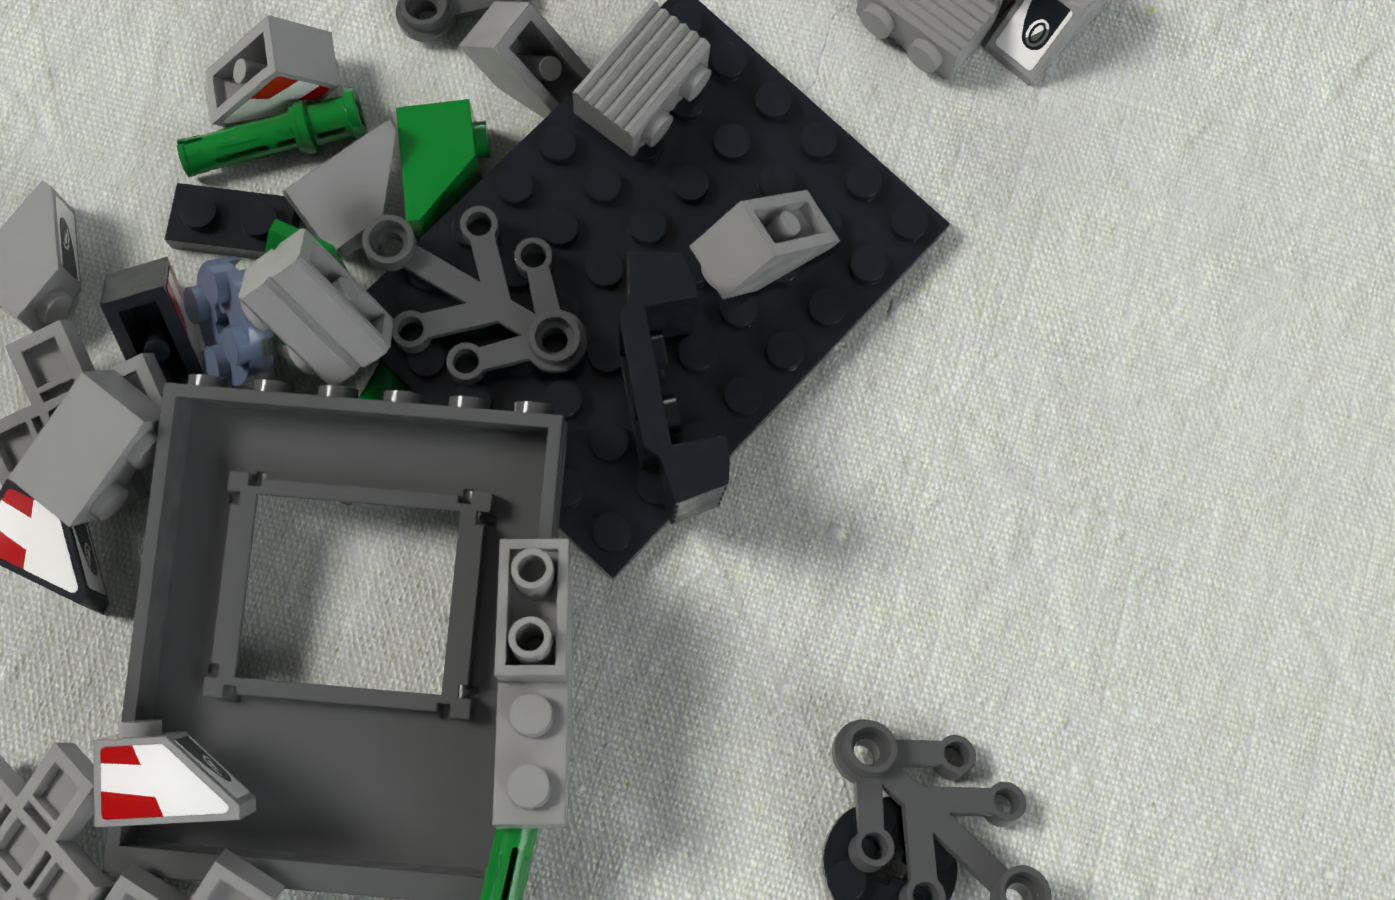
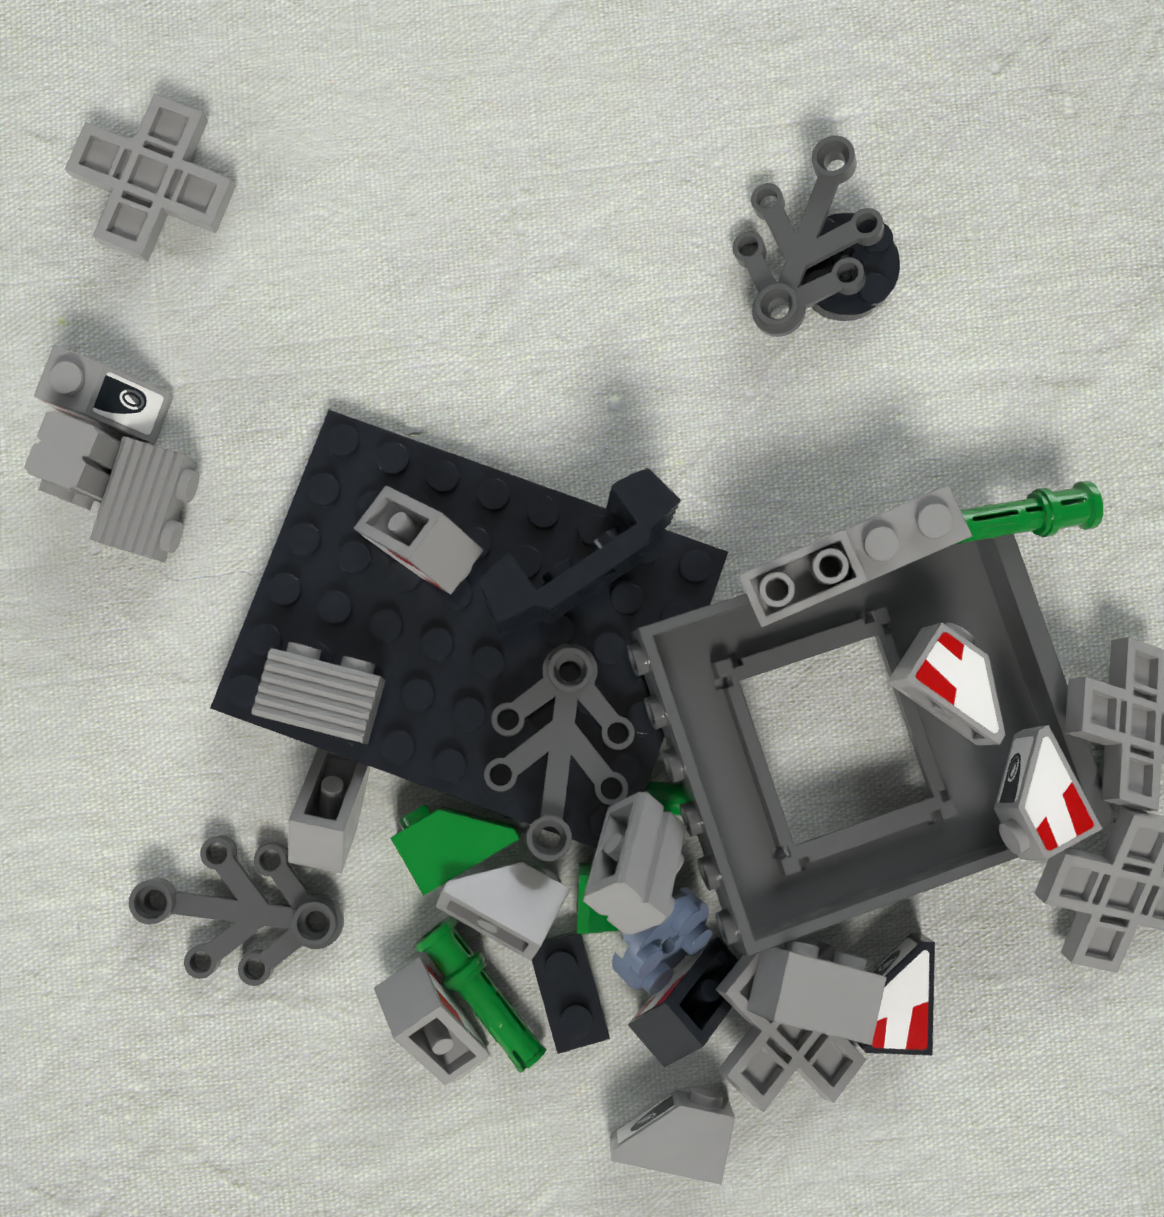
camera: 115 degrees left, 10 degrees up
(345, 736) = (952, 682): none -> slope
(1277, 144) = (150, 177): none -> light grey plate

